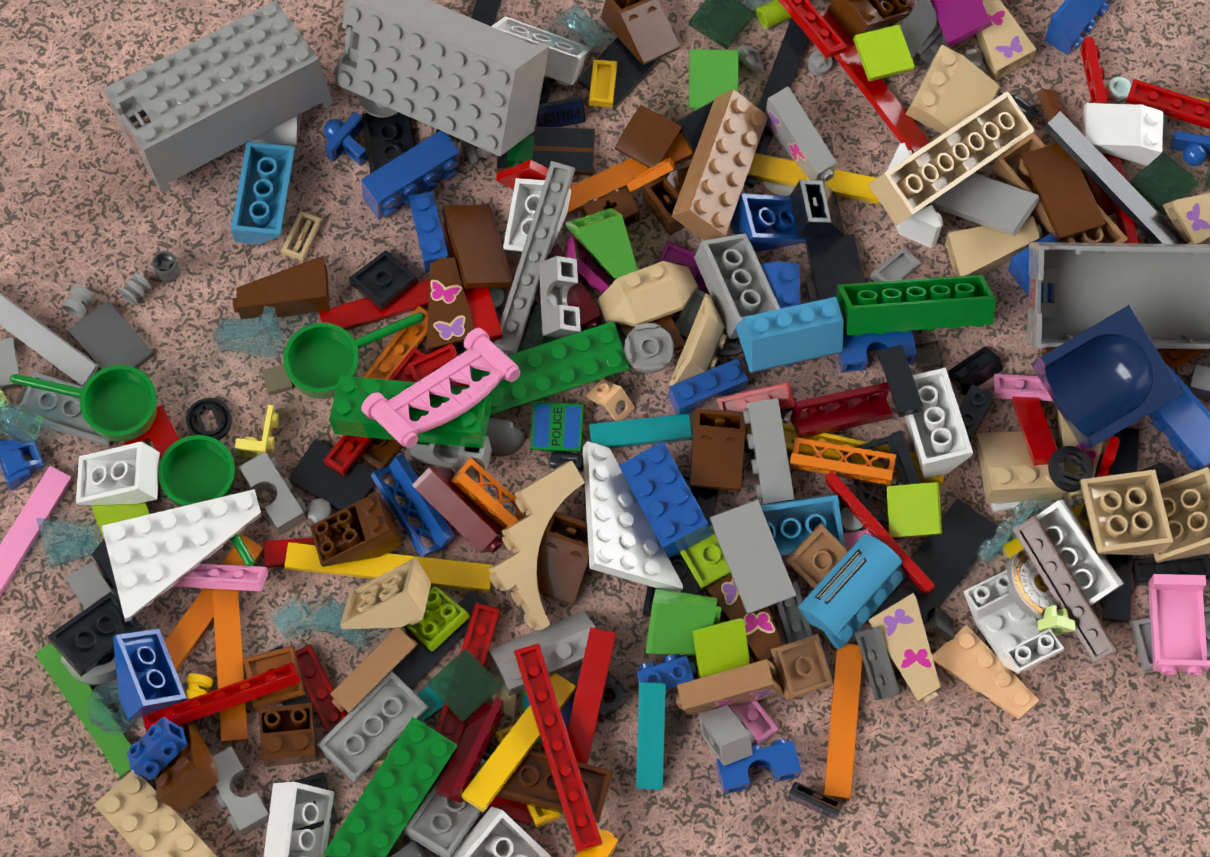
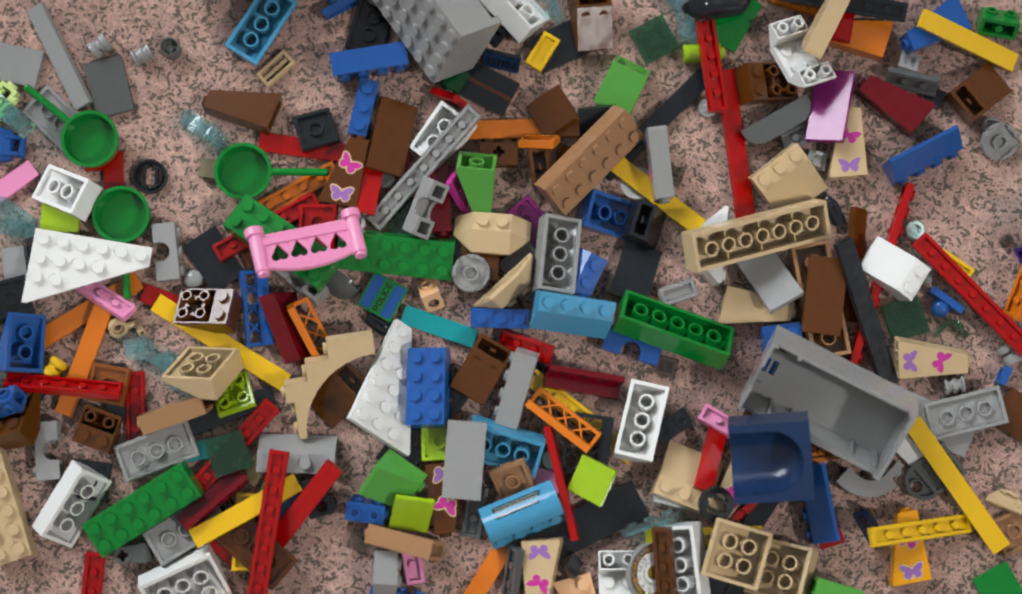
camera: 25 degrees right, 15 degrees up
(251, 446) = (168, 211): light yellow bracket -> none
(260, 603) = (122, 329): none -> tan plate
(355, 151) = (342, 21): blue tile -> none
(650, 735) = (336, 547): teal tile -> none
(751, 58) = (659, 81): light grey tile -> none
(801, 666) = (461, 549): medium nougat tile -> none
(884, 52) = (753, 126): lime tile -> none
(900, 381) = (632, 382): black tile -> none
(975, 370) = (694, 392): black slope -> none
(1162, 471) = (779, 530): black tile -> none

